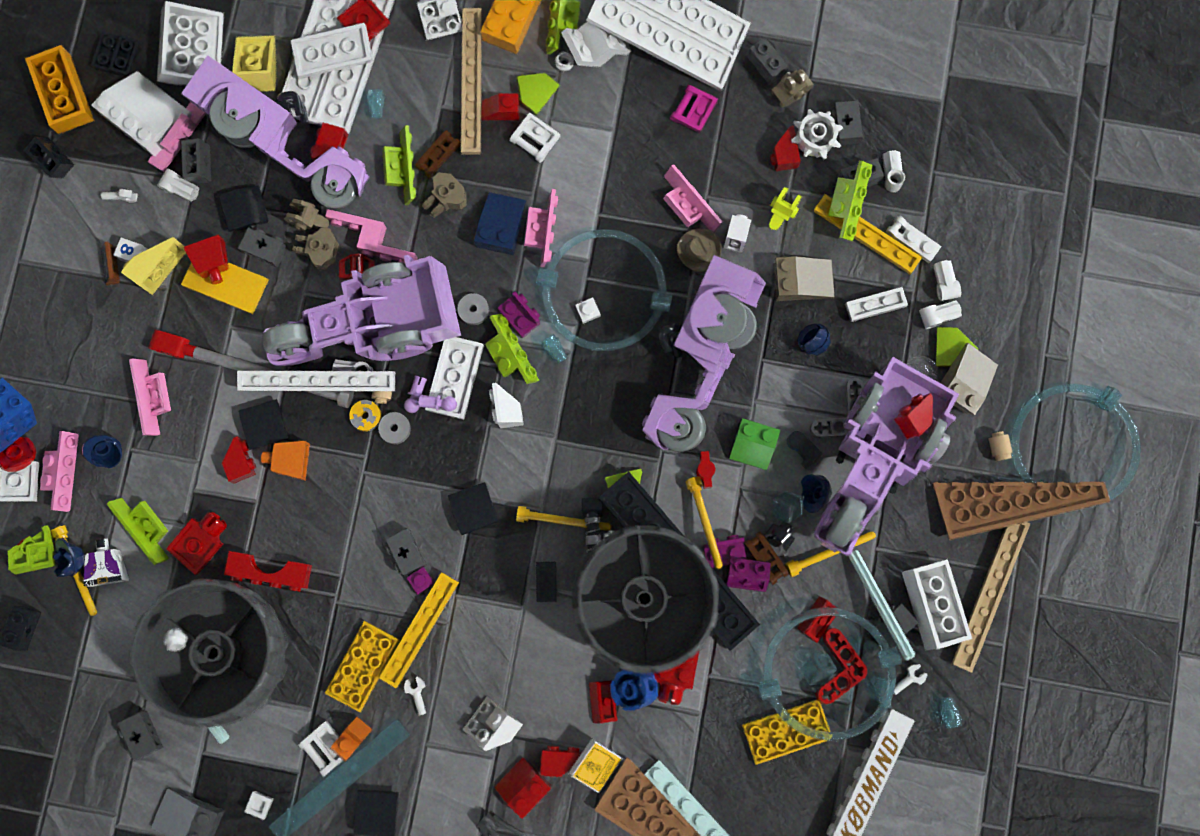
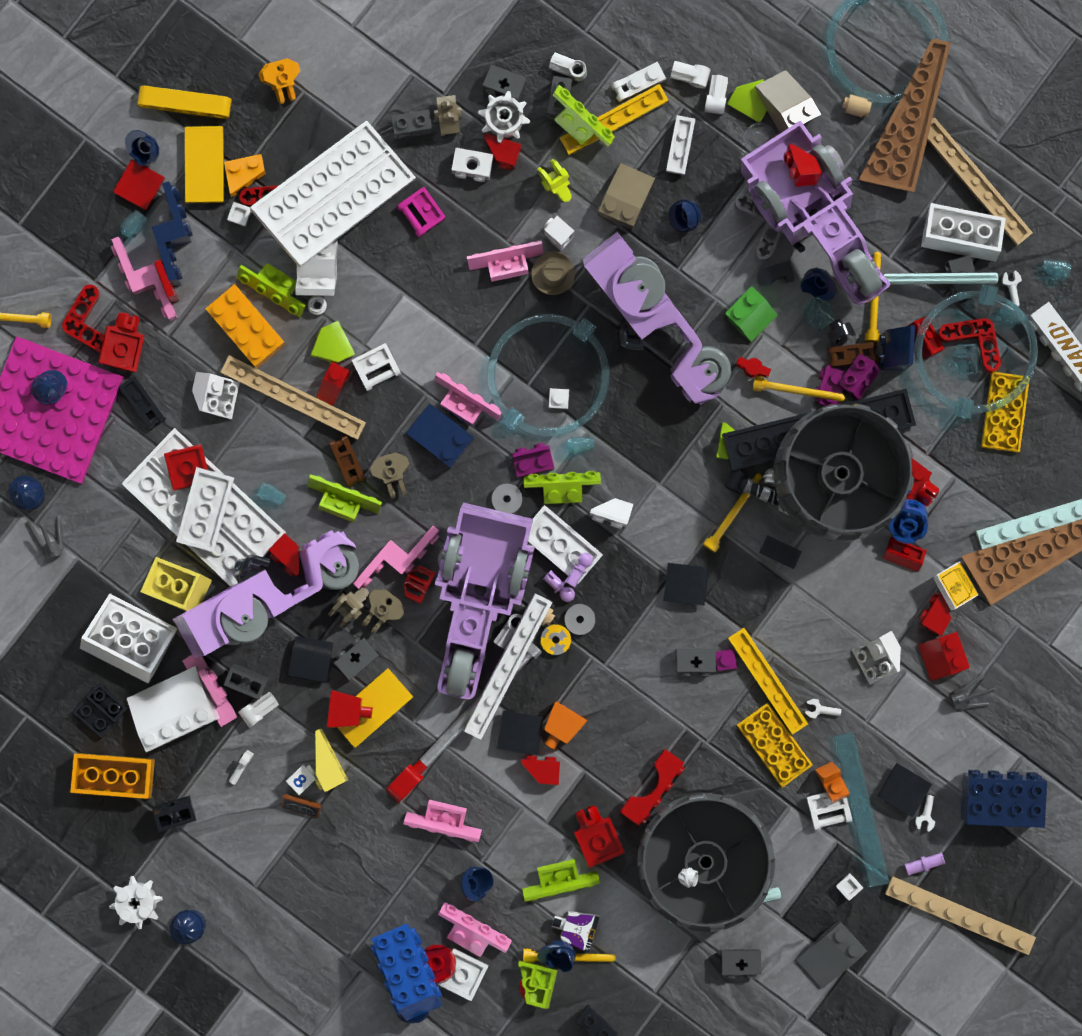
camera: 70 degrees left, 5 degrees up
(759, 120) = (463, 157): none -> white brick
(793, 595) = (897, 348): none -> dark blue slope

